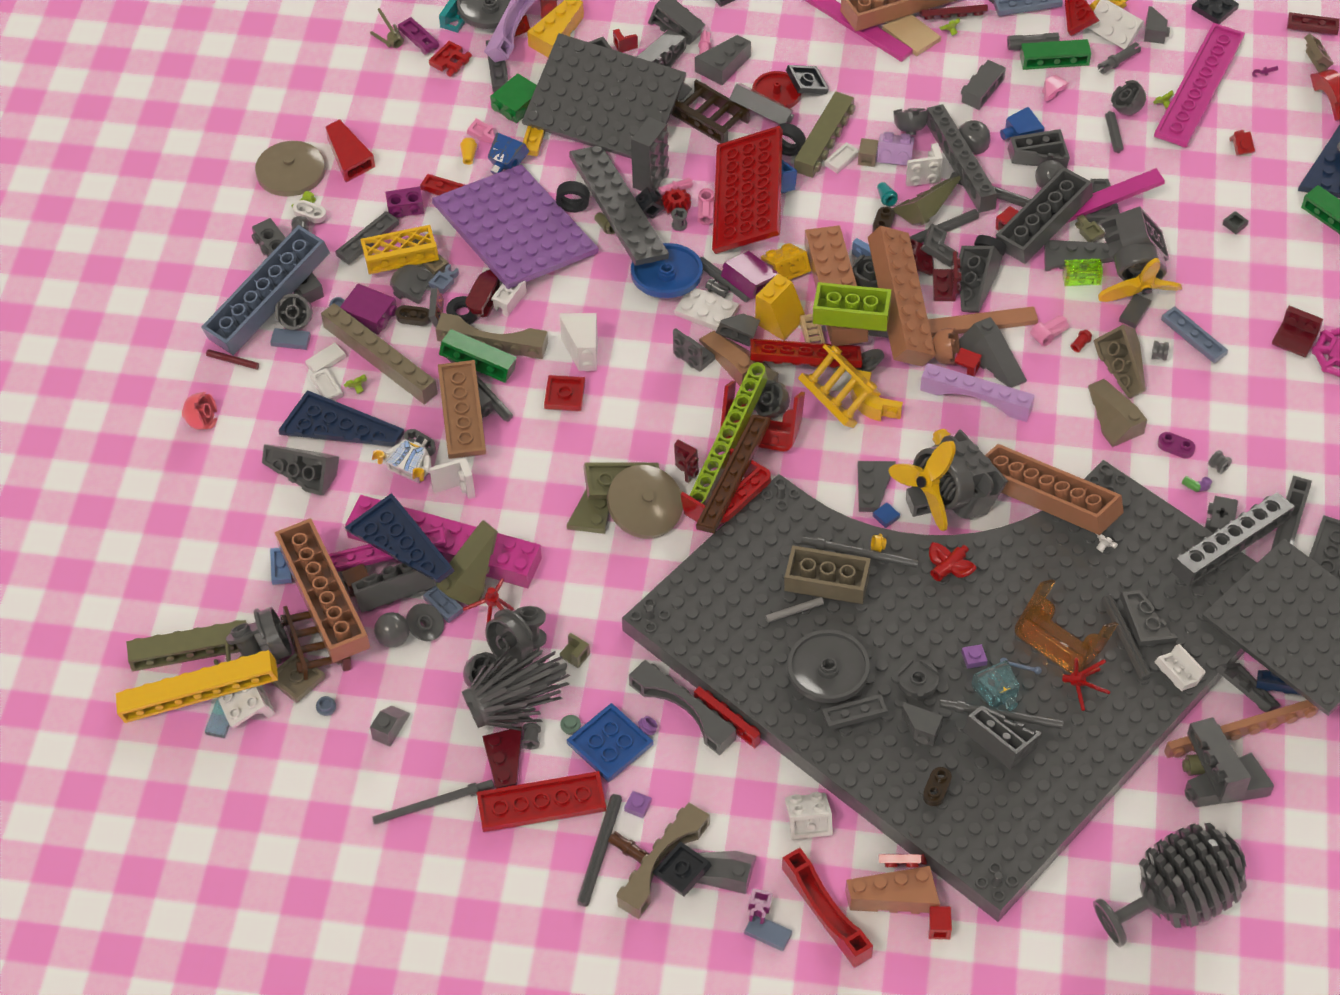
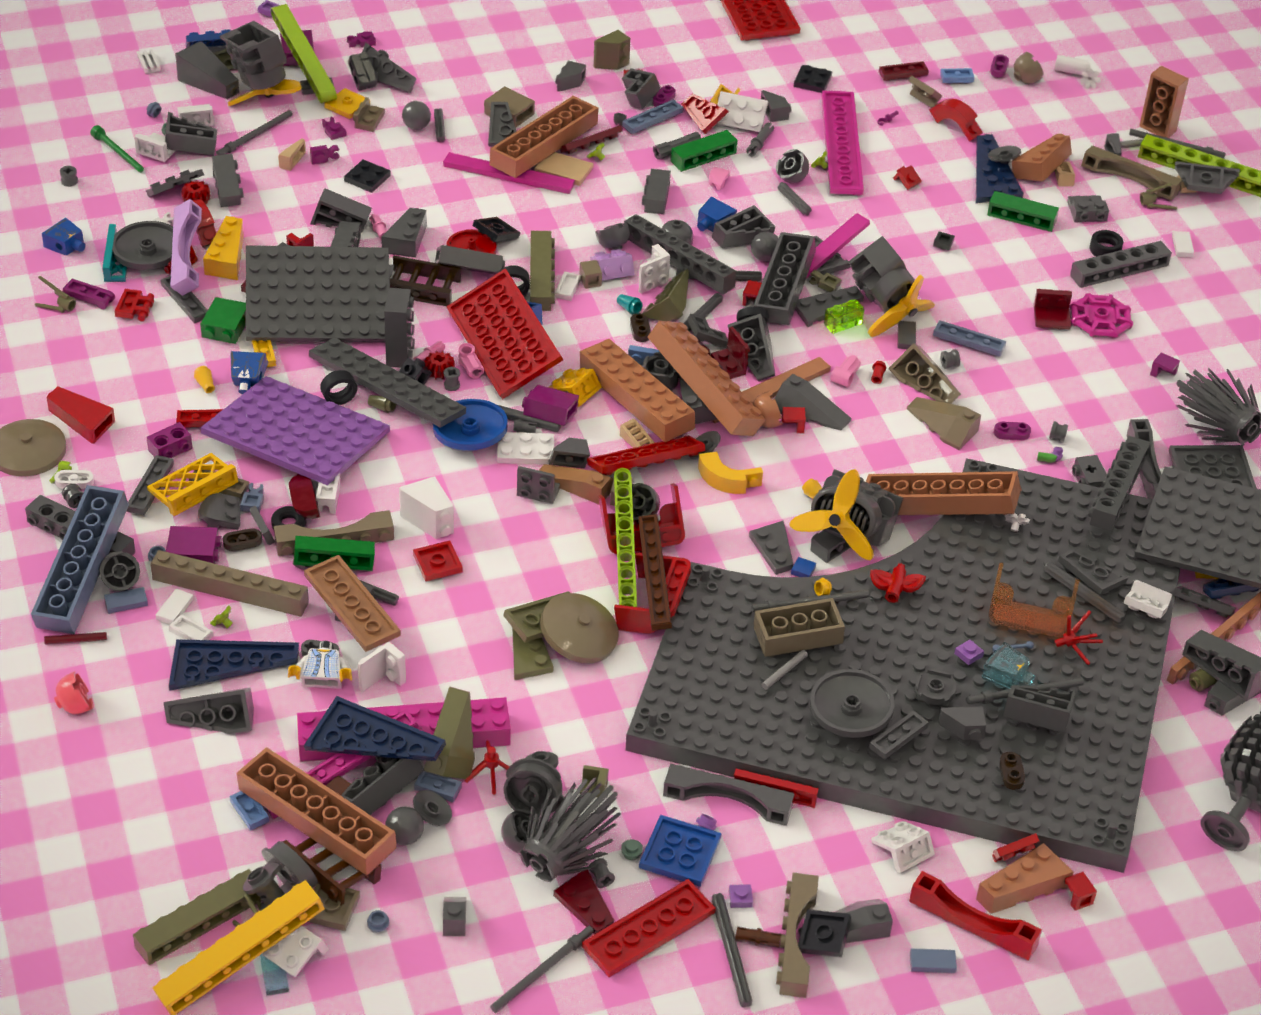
camera: 30 degrees left, 10 degrees down
(481, 131) = (208, 359): bright pink slope -> none
(686, 459) = (596, 578): dark red bracket -> none
(759, 904) = (913, 937): plate -> none
(778, 307) = (598, 422): yellow slope -> none
(822, 392) = (682, 482): yellow fence -> none
(852, 306) = (675, 395): lime brick -> none
(1011, 401) = (781, 440): lavender arch -> none

